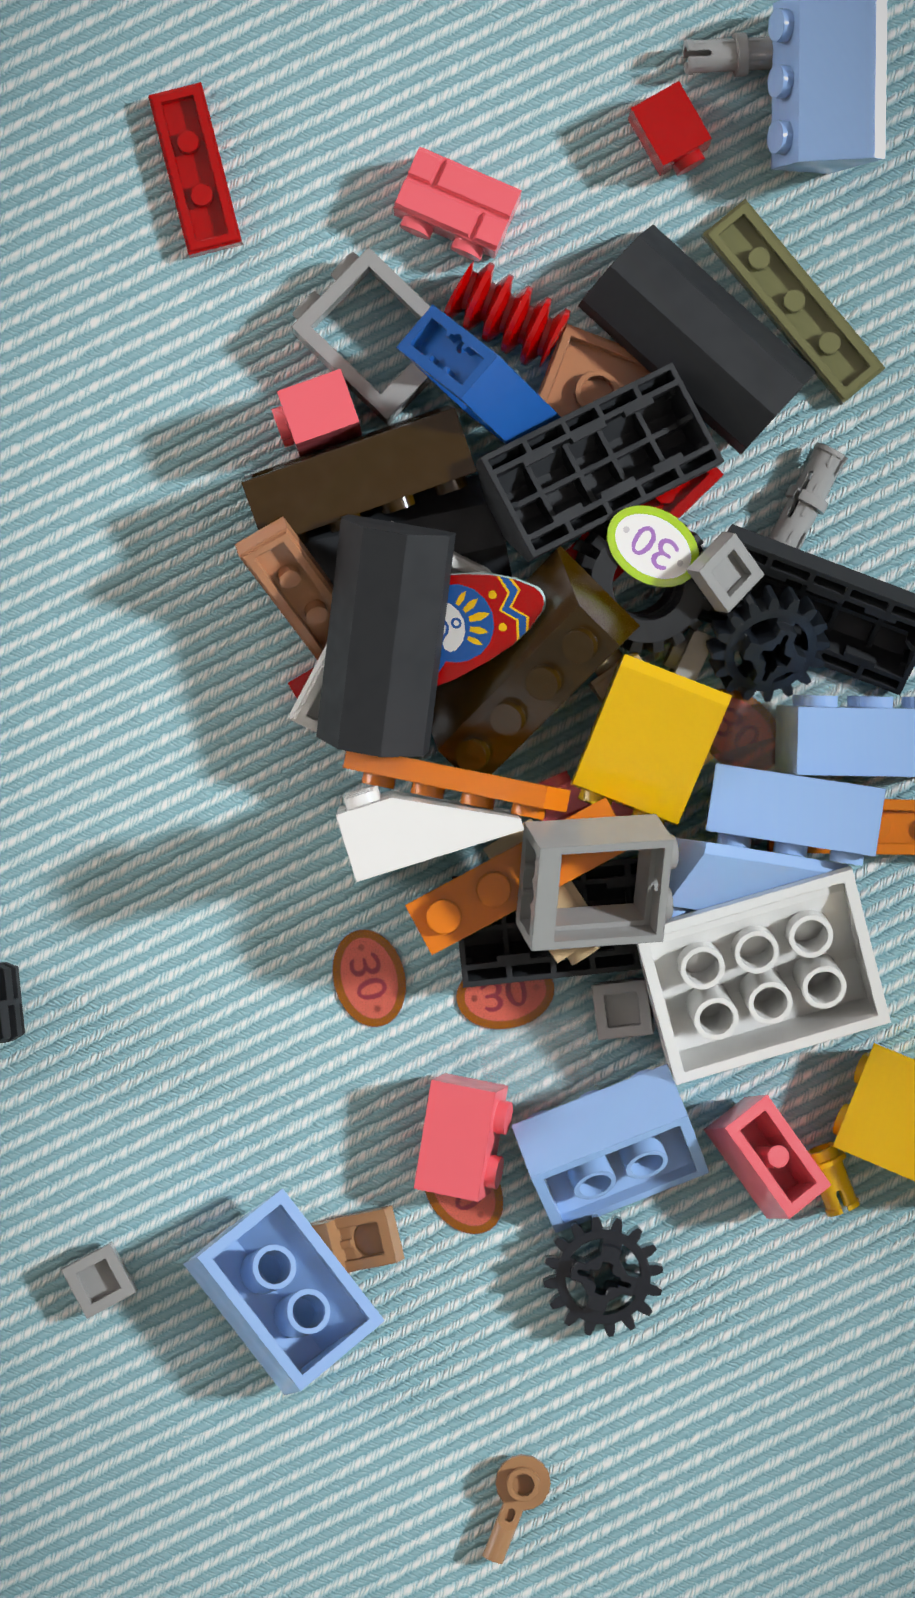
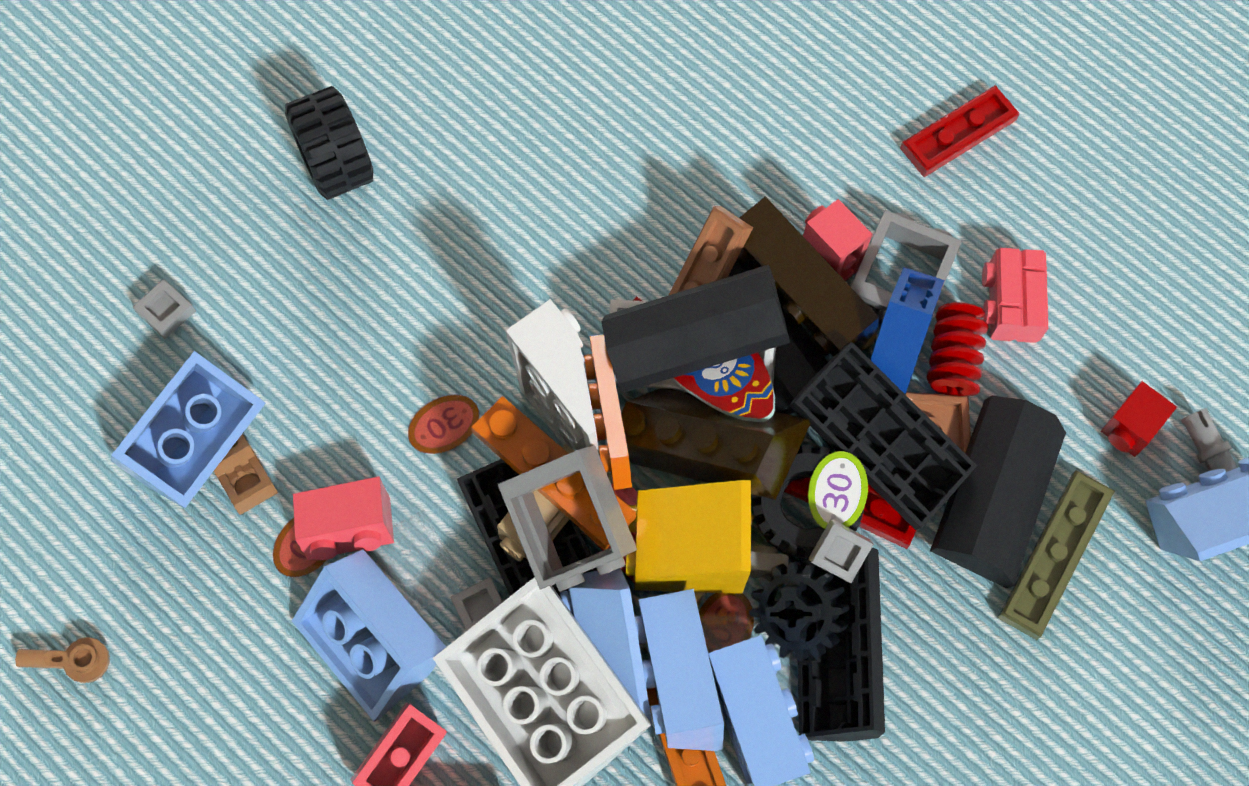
camera: 70 degrees right, 20 degrees down
(505, 1004) = (457, 525): clear red sticker -> none
(596, 1299) = (248, 663): black gear -> none
(808, 496) = (922, 613): light grey pin -> none

